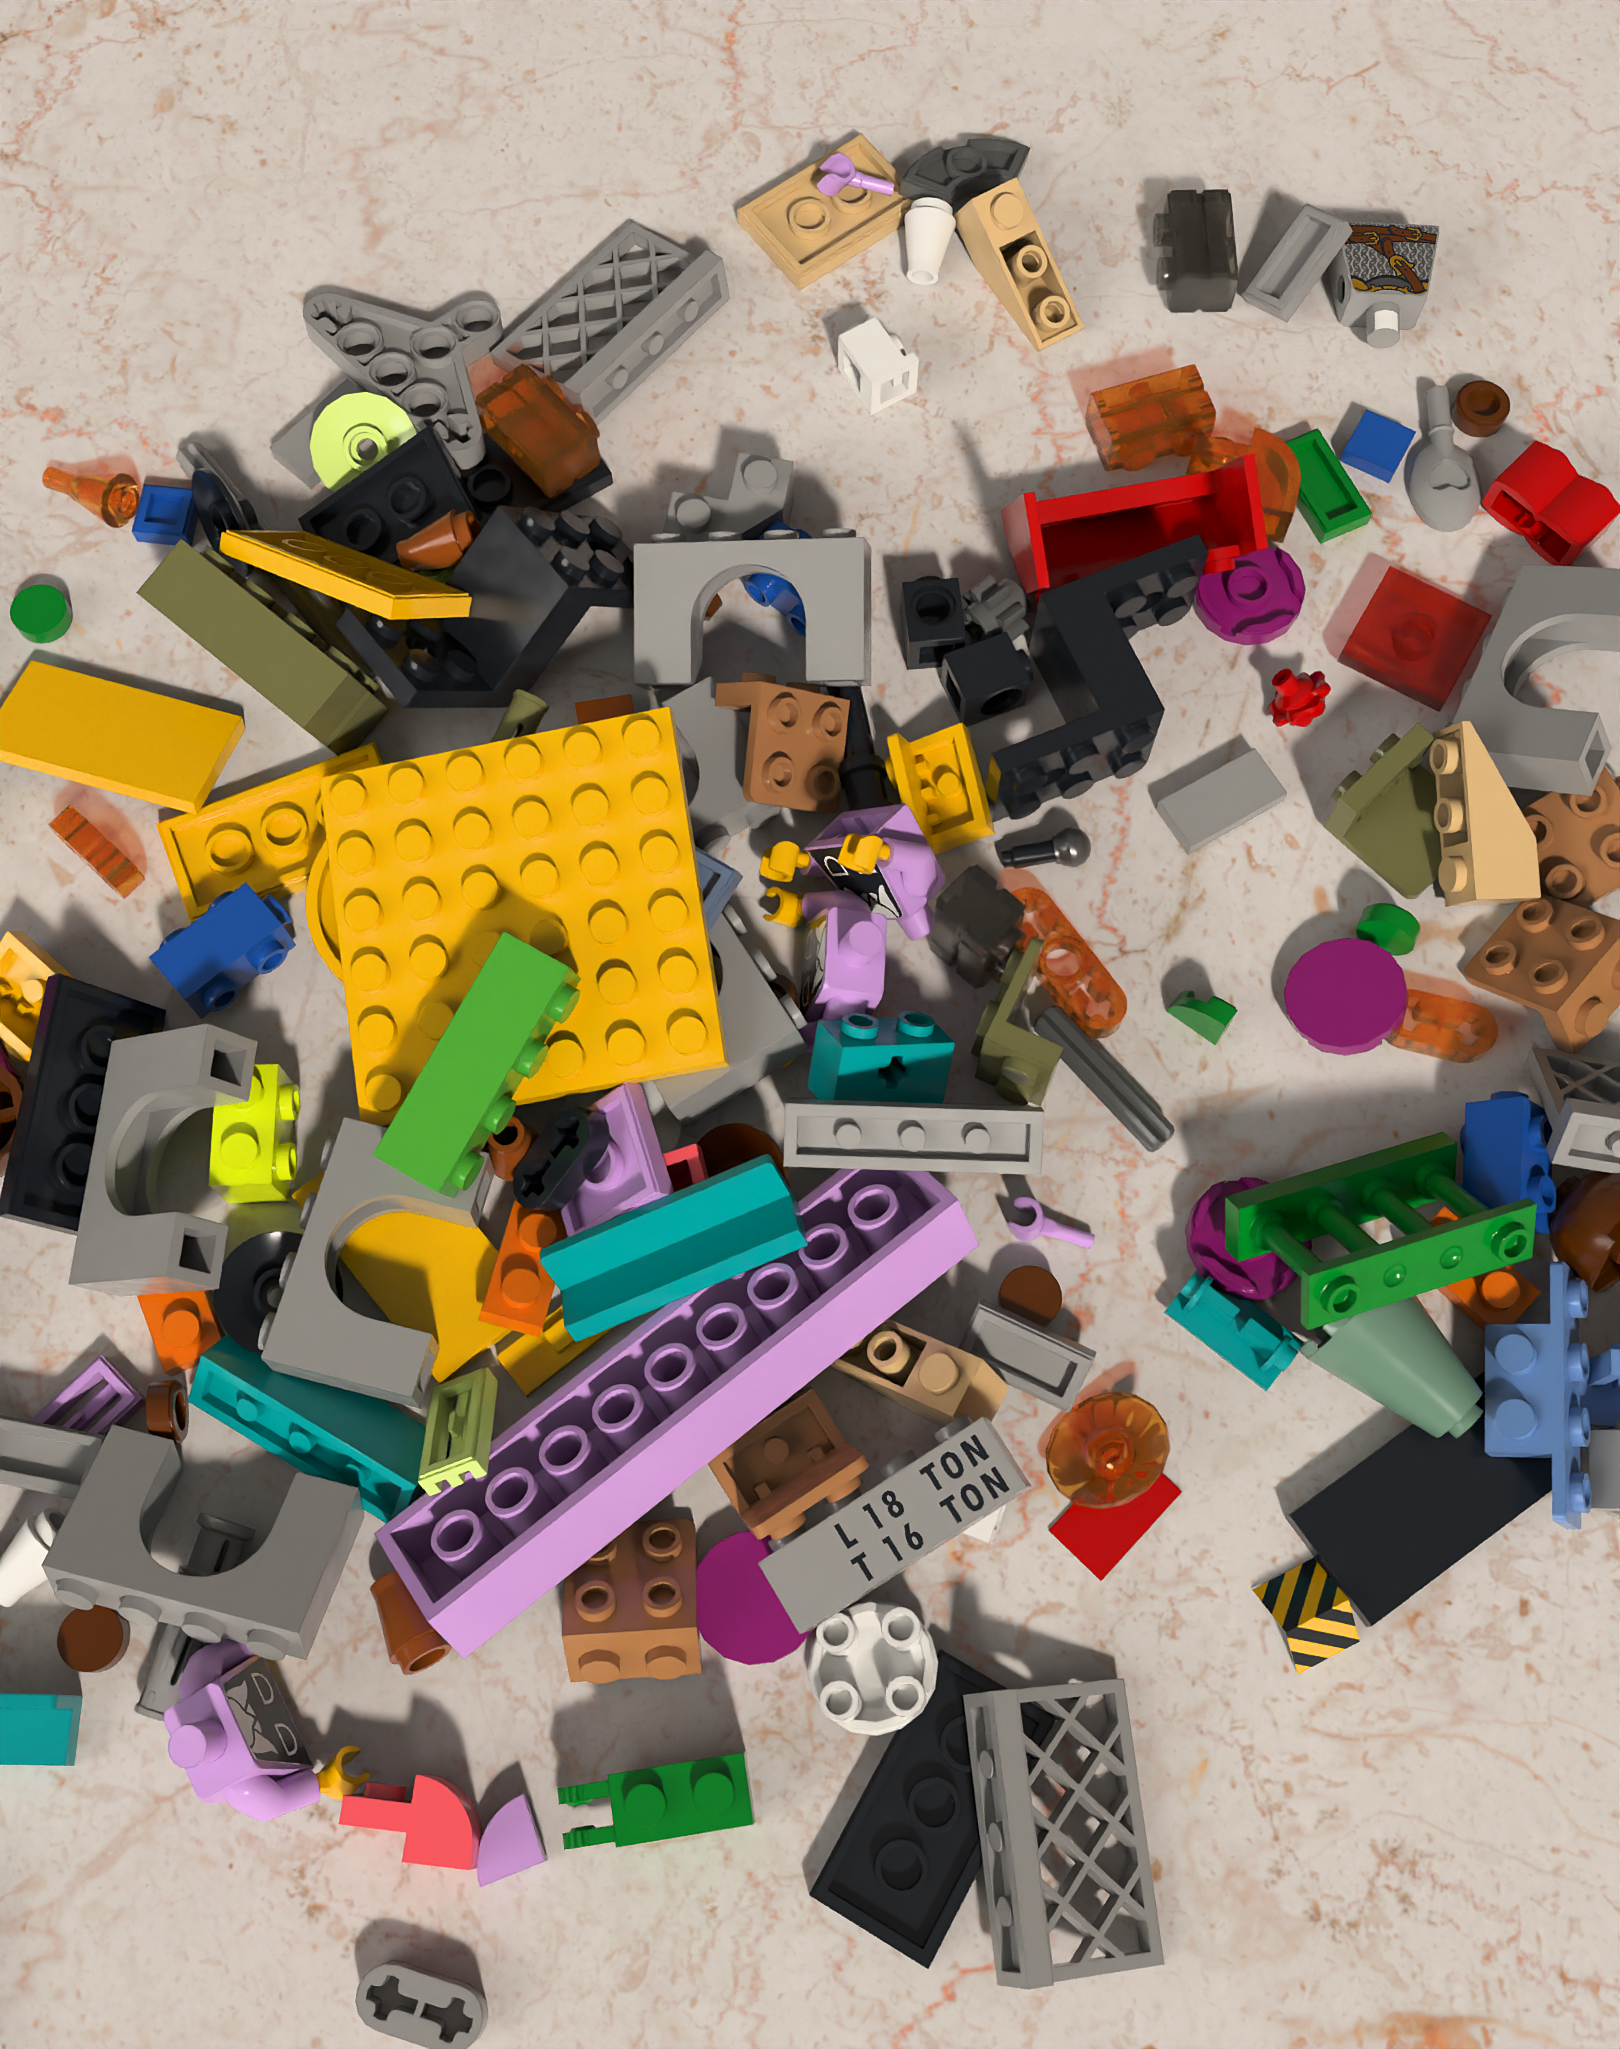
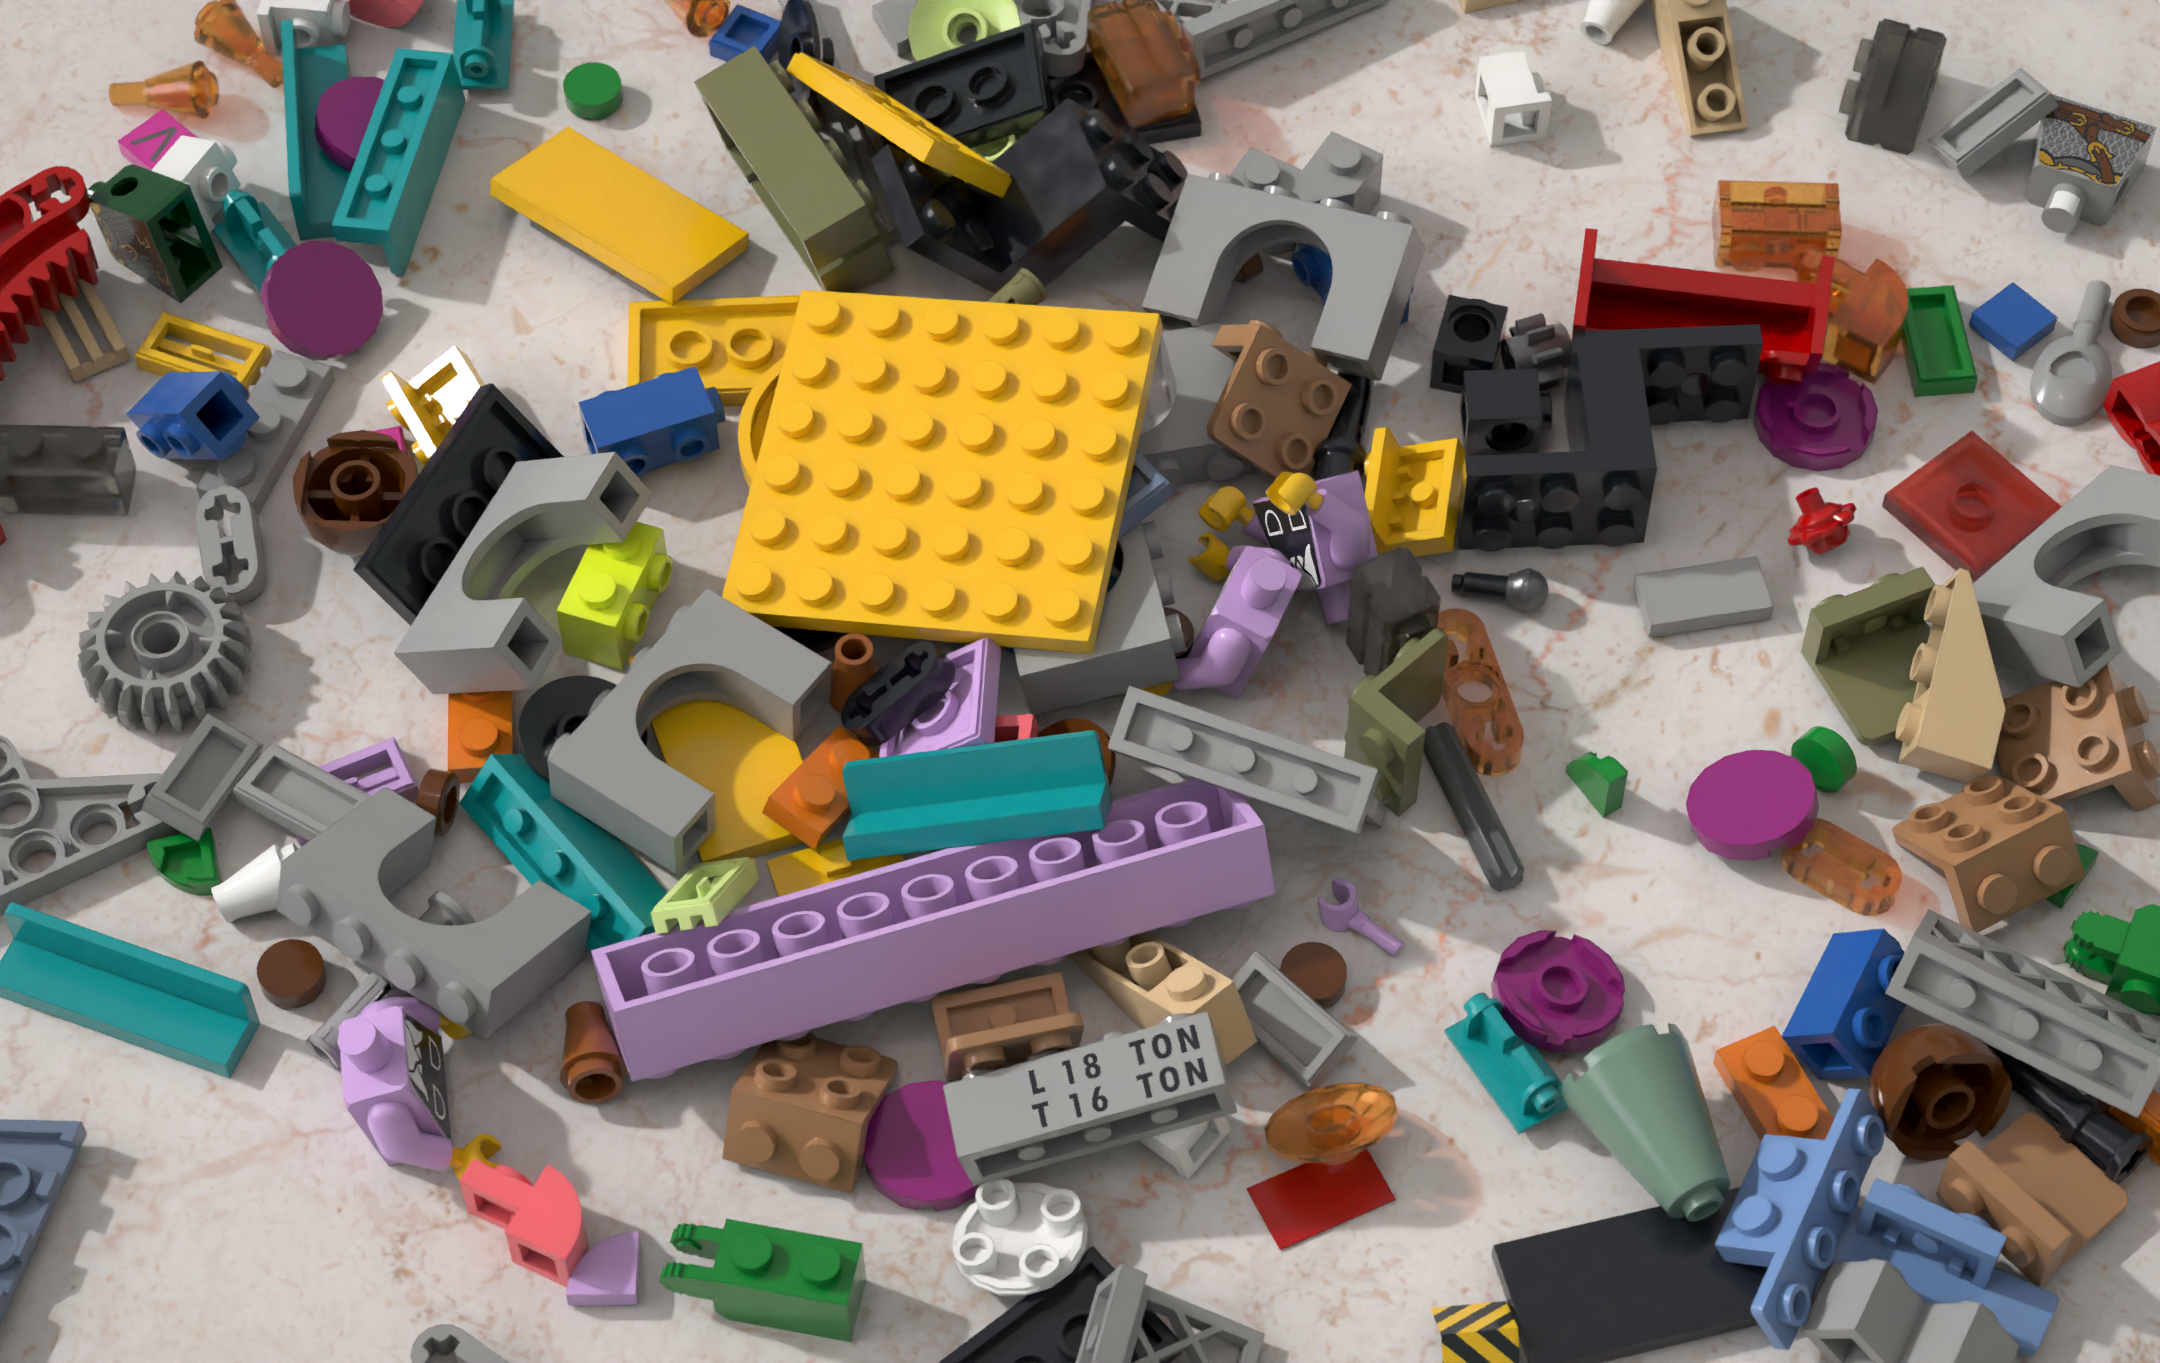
camera: 20 degrees right, 15 degrees down
(96, 851) = (563, 308): clear orange beam -> none
(439, 543) = (1000, 125): dark orange cone -> none
(479, 1066) = (852, 569): bright green brick -> none
(881, 1059) = (1223, 675): teal brick -> none
(1363, 1190) = (1681, 994): green fence -> none

